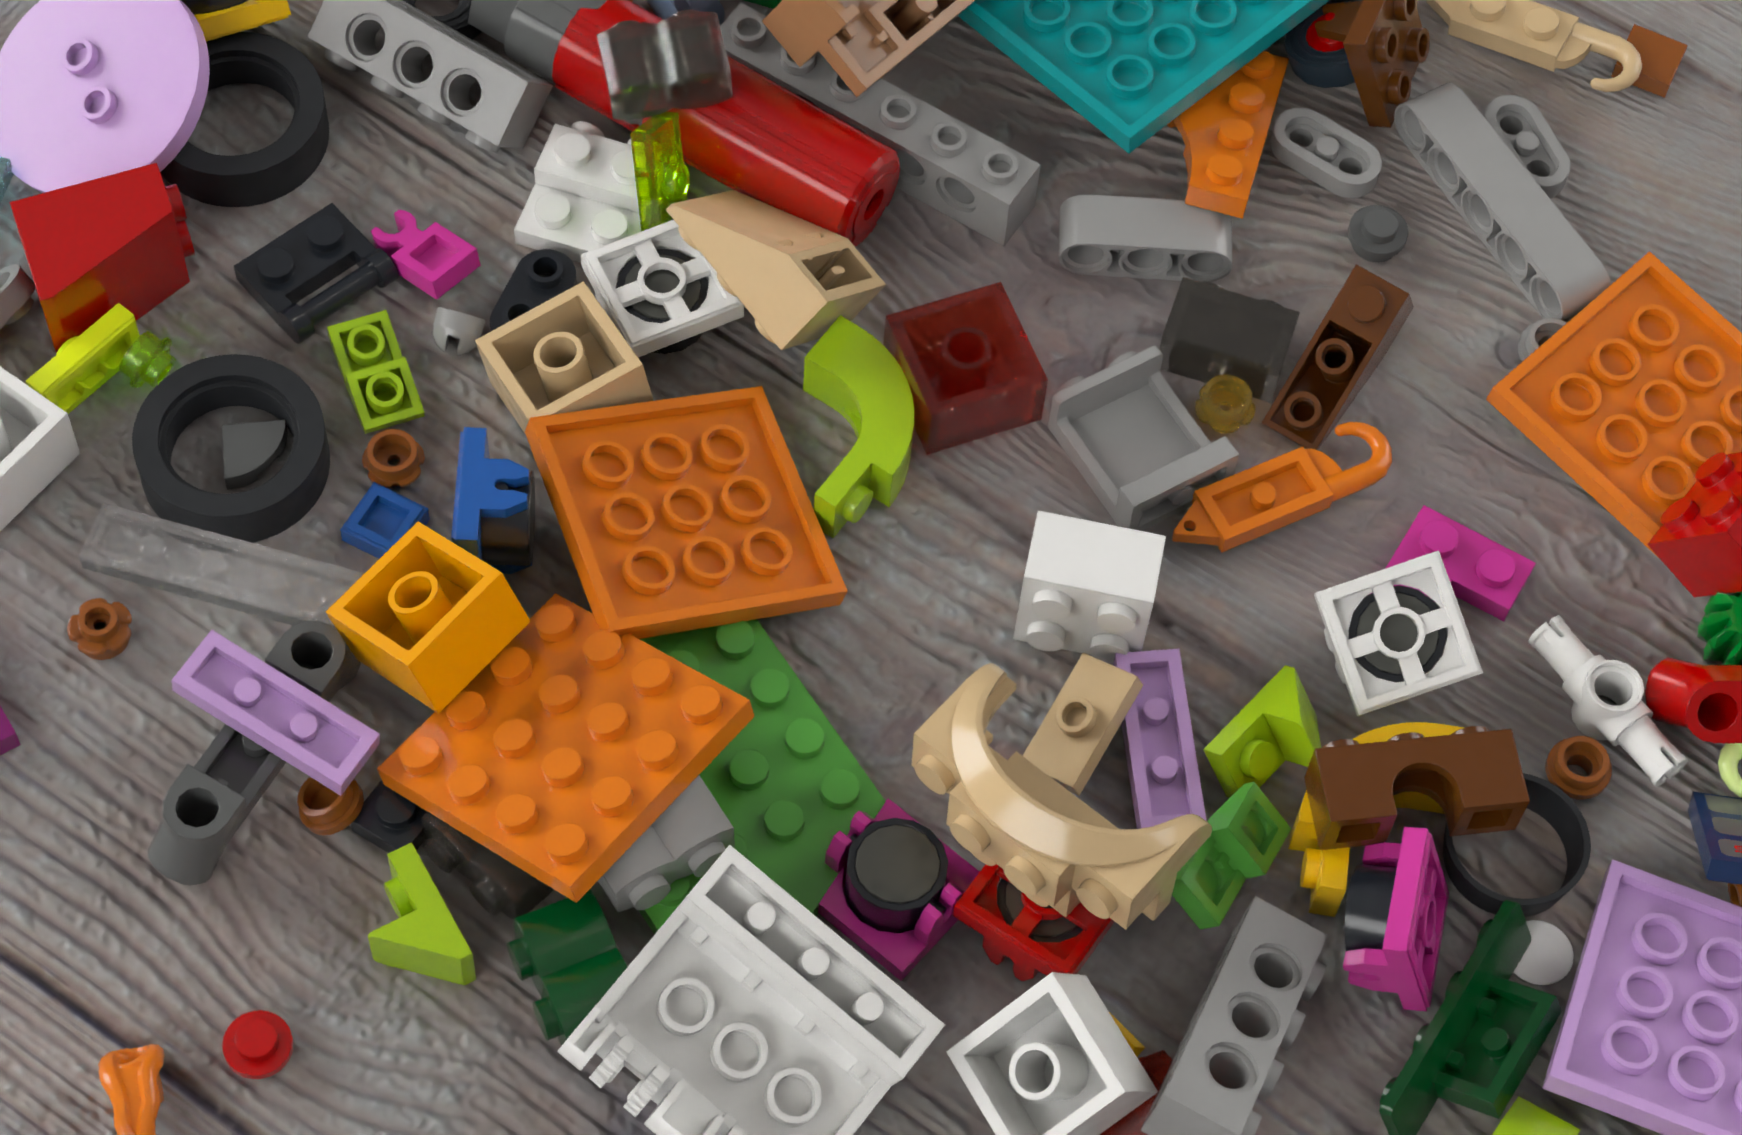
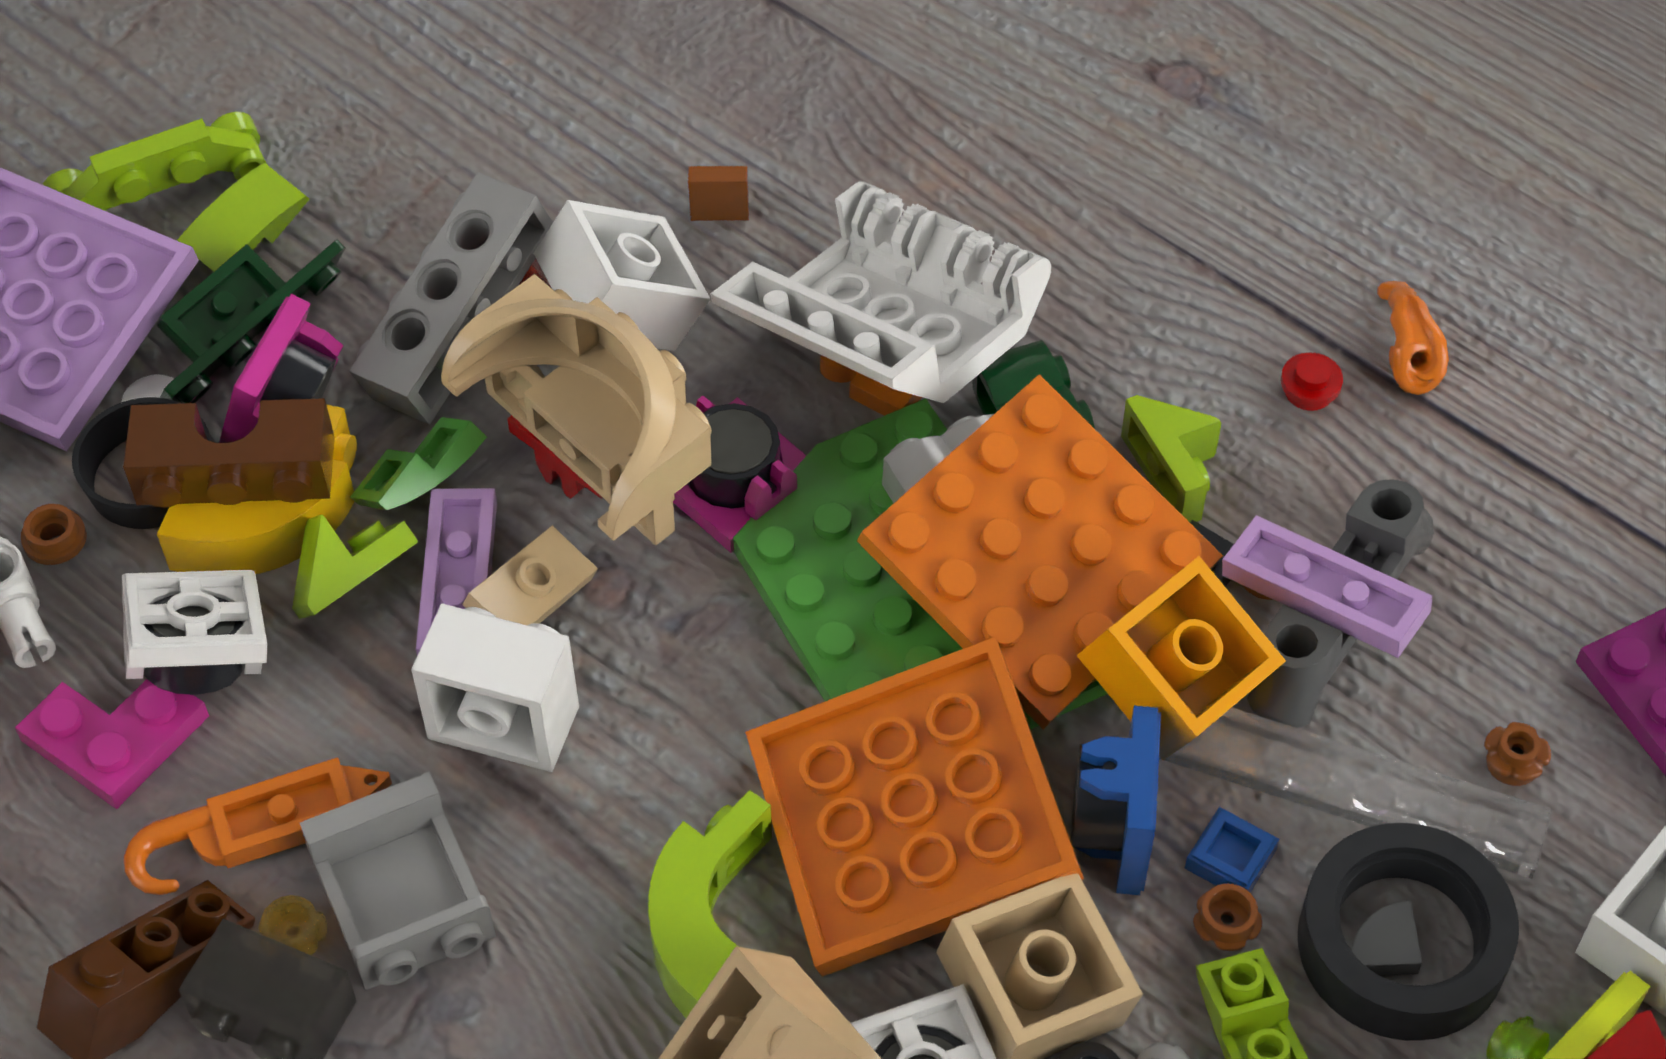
camera: 170 degrees left, 5 degrees down
(967, 367) = (583, 956): clear red brick -> none

